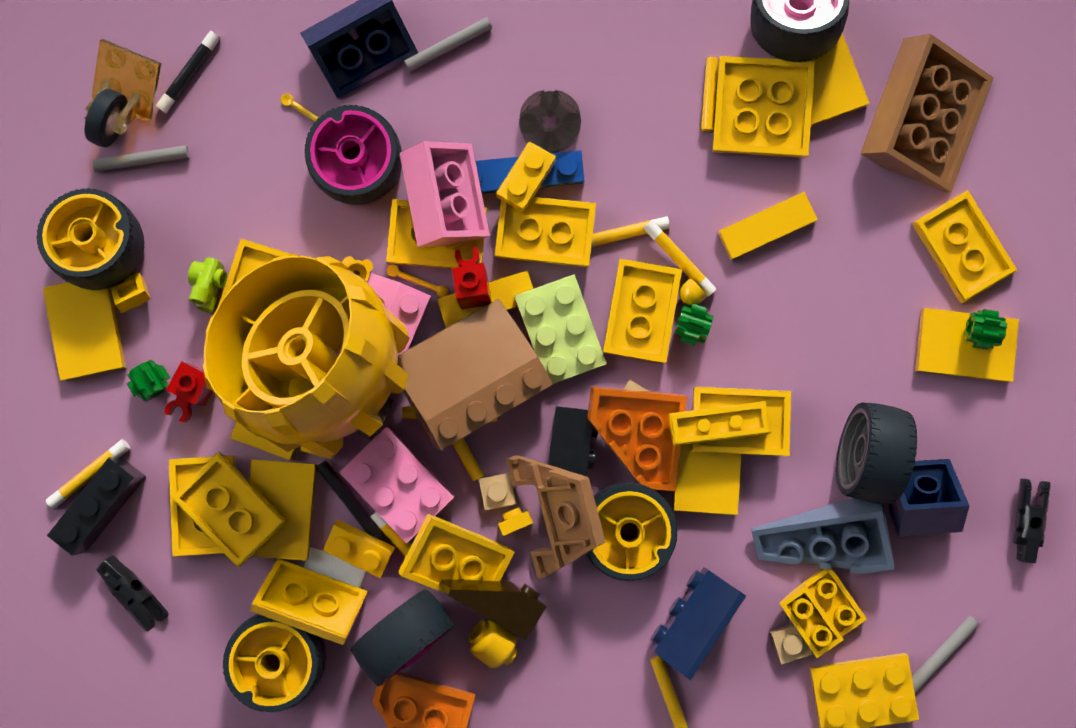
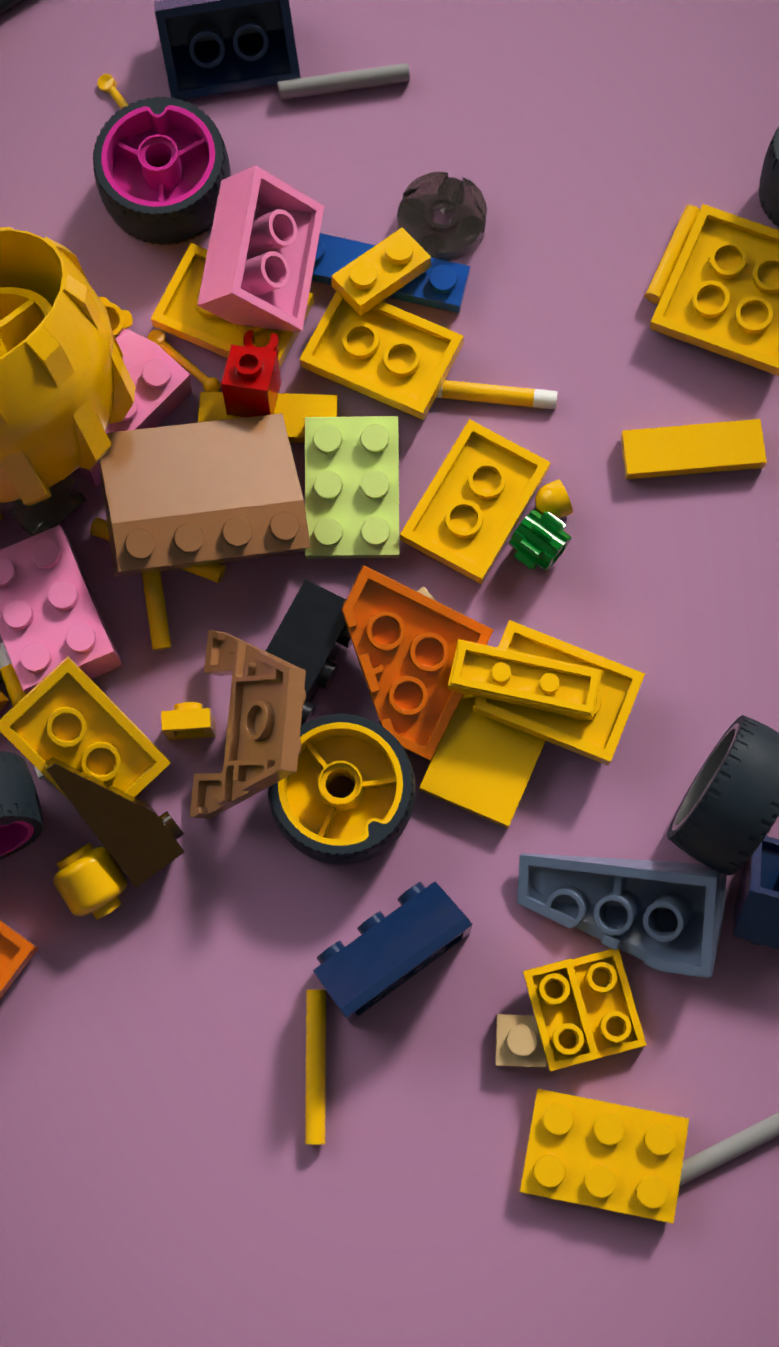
camera: 25 degrees right, 10 degrees down
(497, 491) = (180, 676): tan plate -> none
(679, 257) = (553, 447): yellow bar -> none

